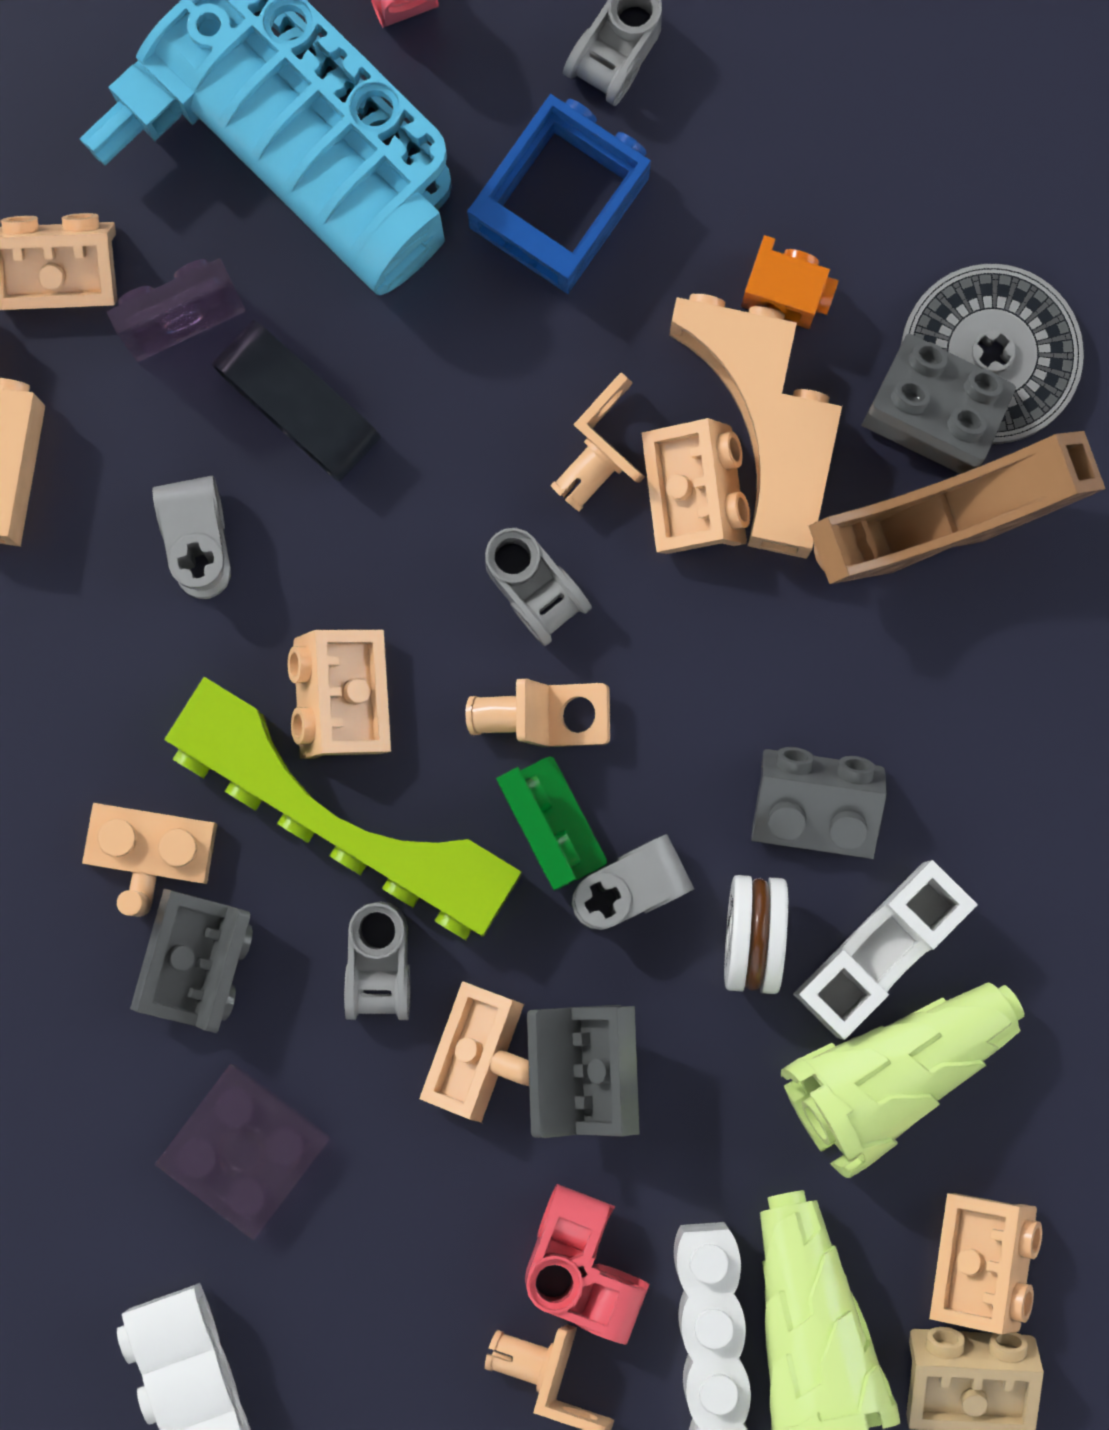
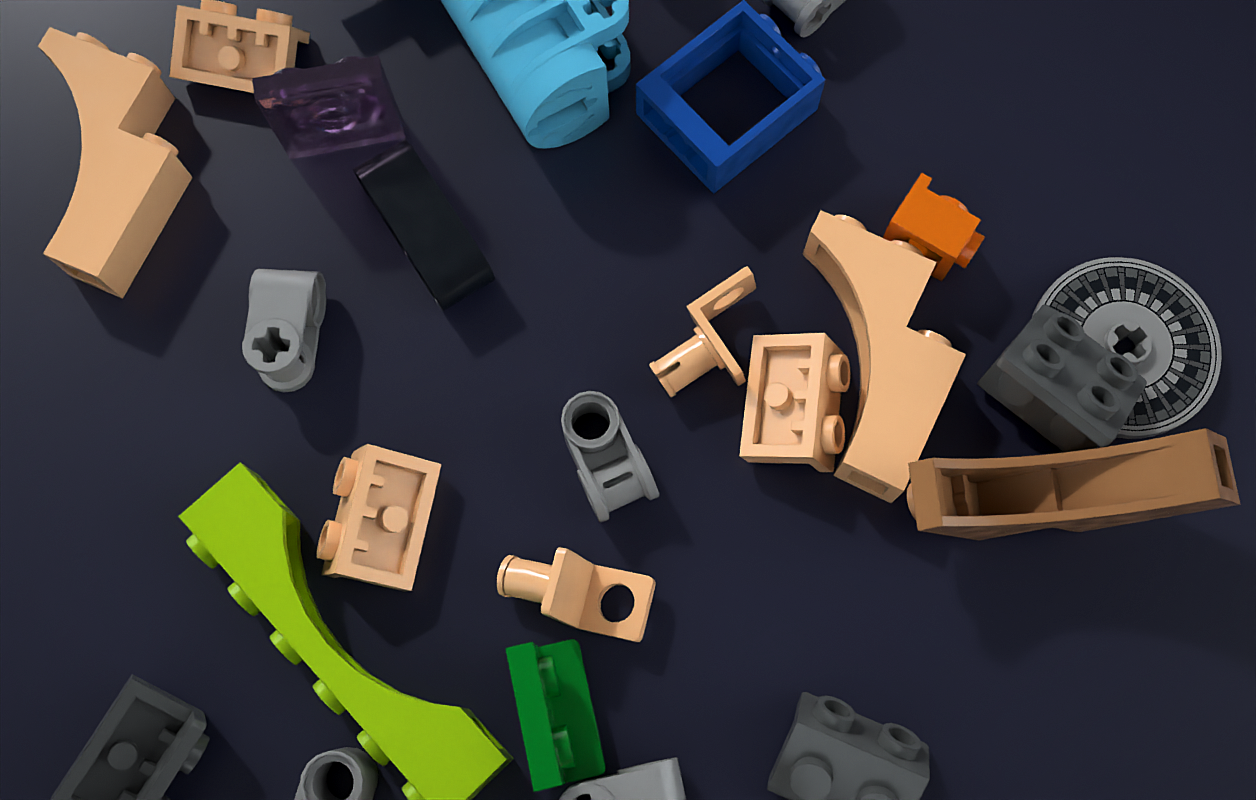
camera: 15 degrees right, 10 degrees down
(149, 848) = (136, 627): light nougat plate -> none

